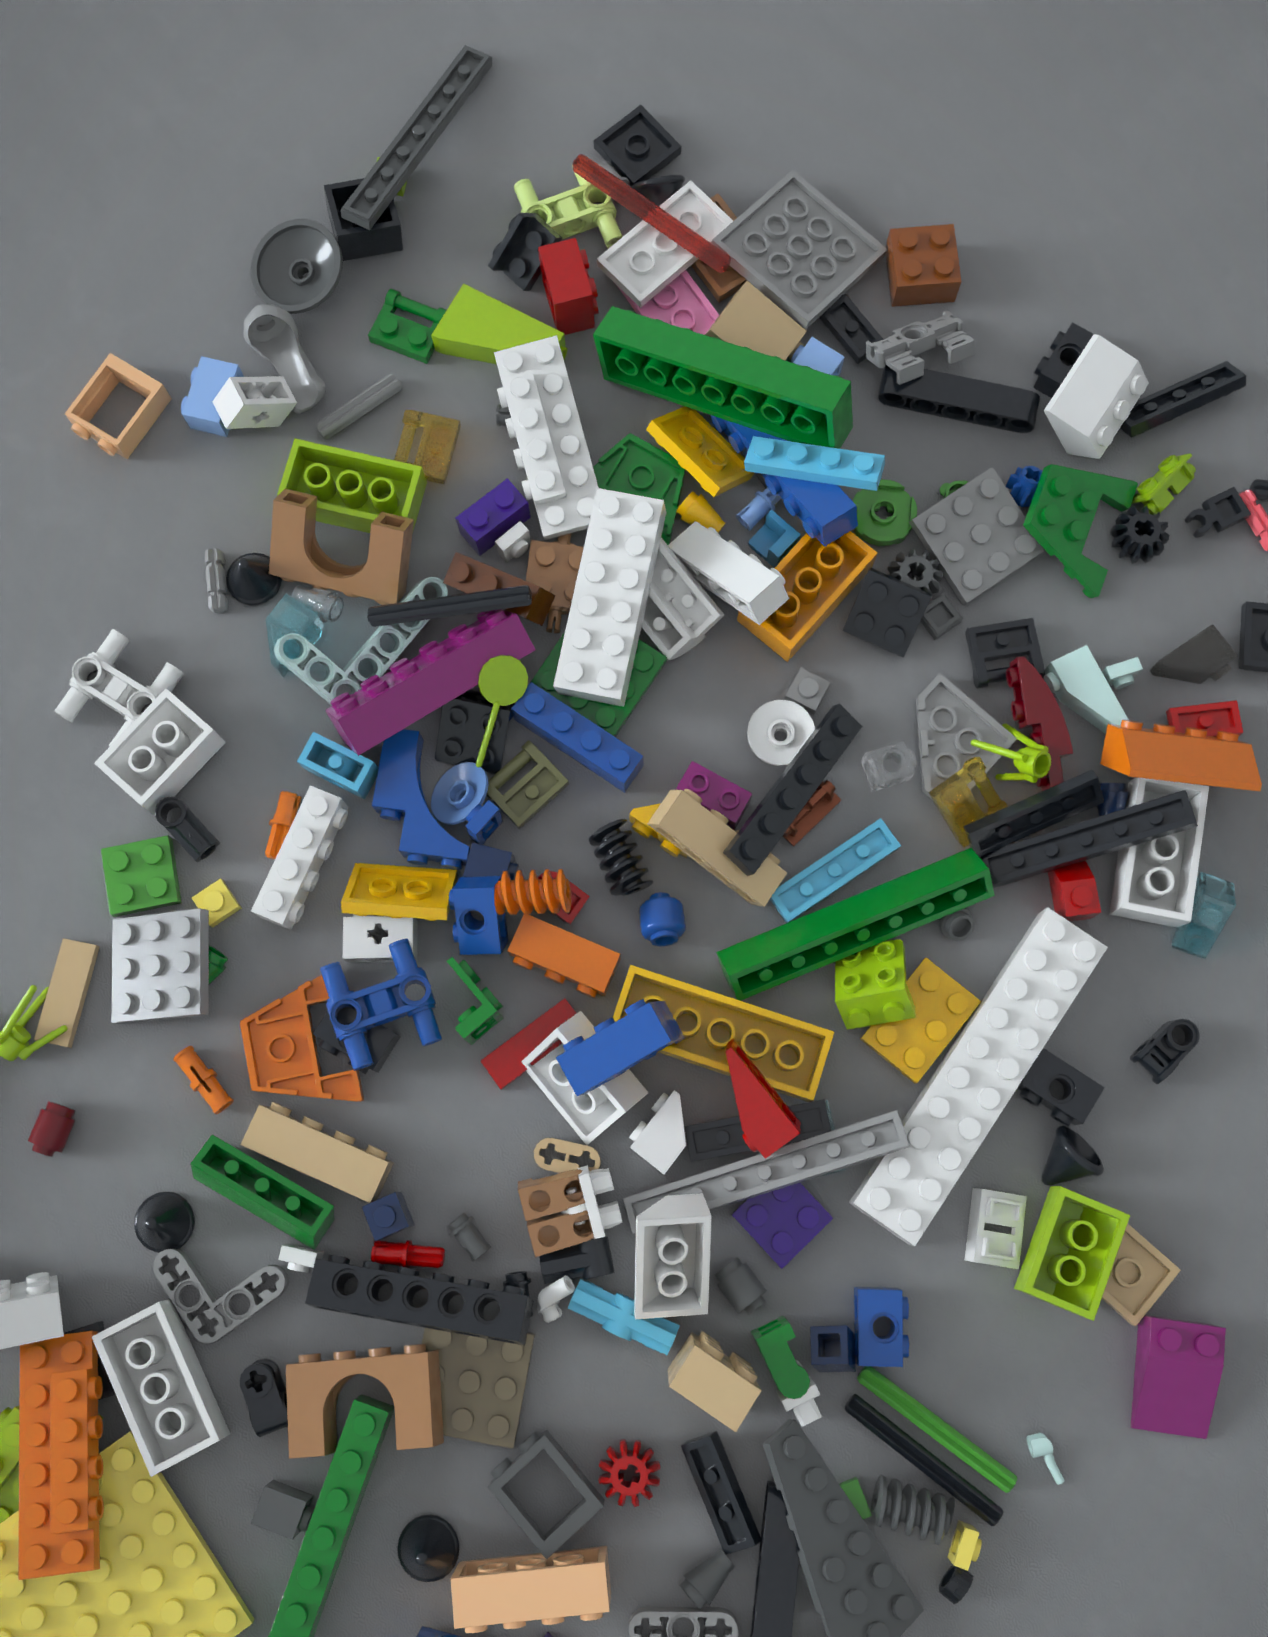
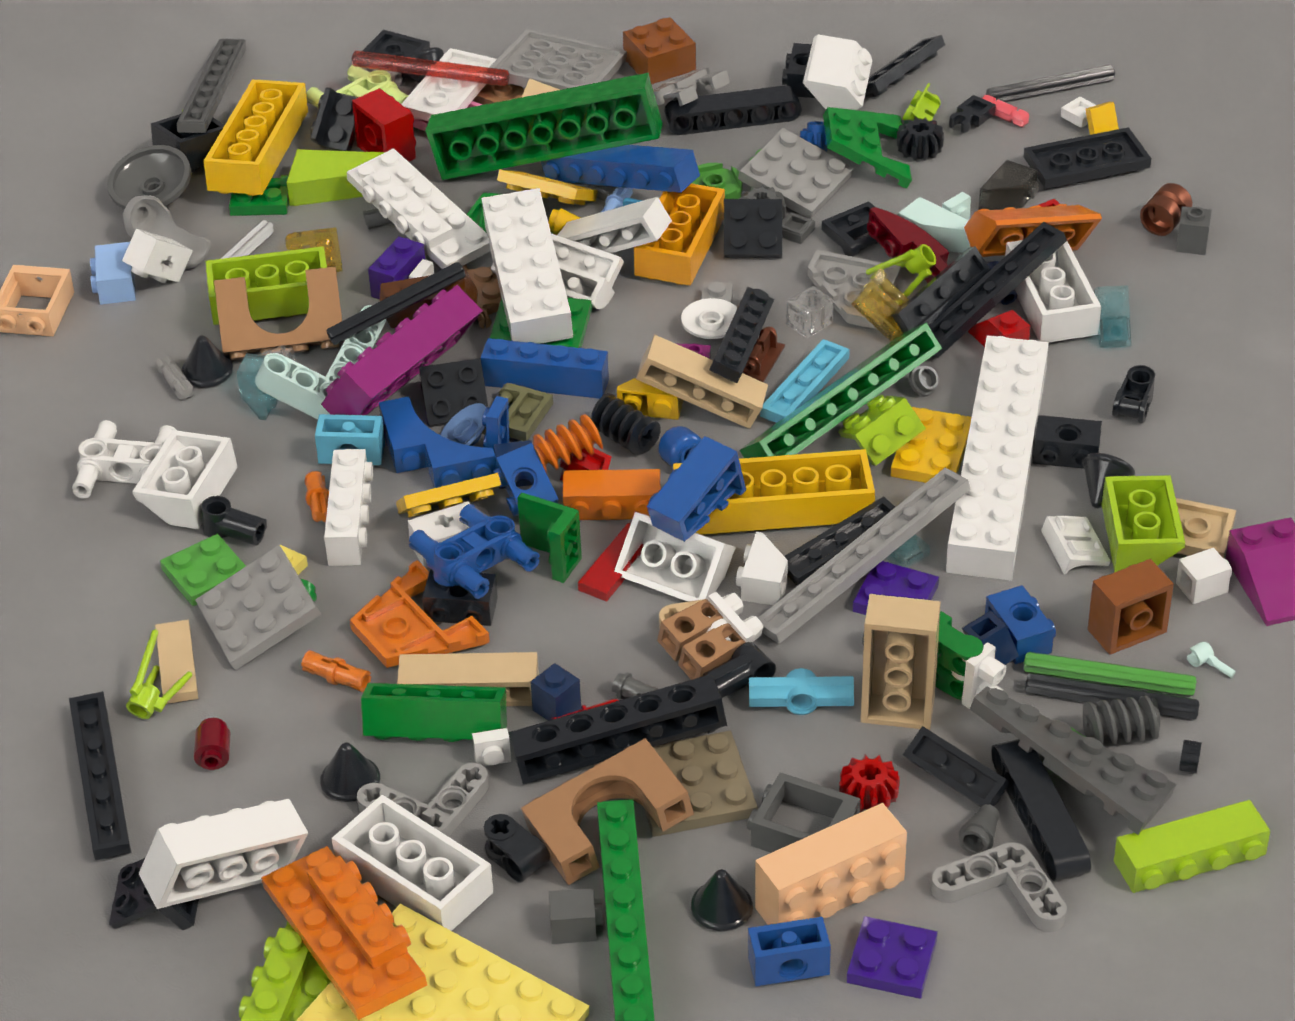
camera: 25 degrees left, 35 degrees down
(429, 245) = (256, 137): none -> yellow brick
(501, 683) = (469, 338): lime piece -> none
(550, 1298) = (730, 699): white arm -> none
(673, 1258) = (822, 615): white slope -> none
(762, 1112) = (833, 502): red slope -> none
(815, 463) = (645, 143): medium azure plate -> none
(964, 1545) = (1180, 727): light yellow plate -> none
(995, 1371) = (1130, 606): none -> dark orange brick
(1100, 1345) = (1203, 575): none -> white brick

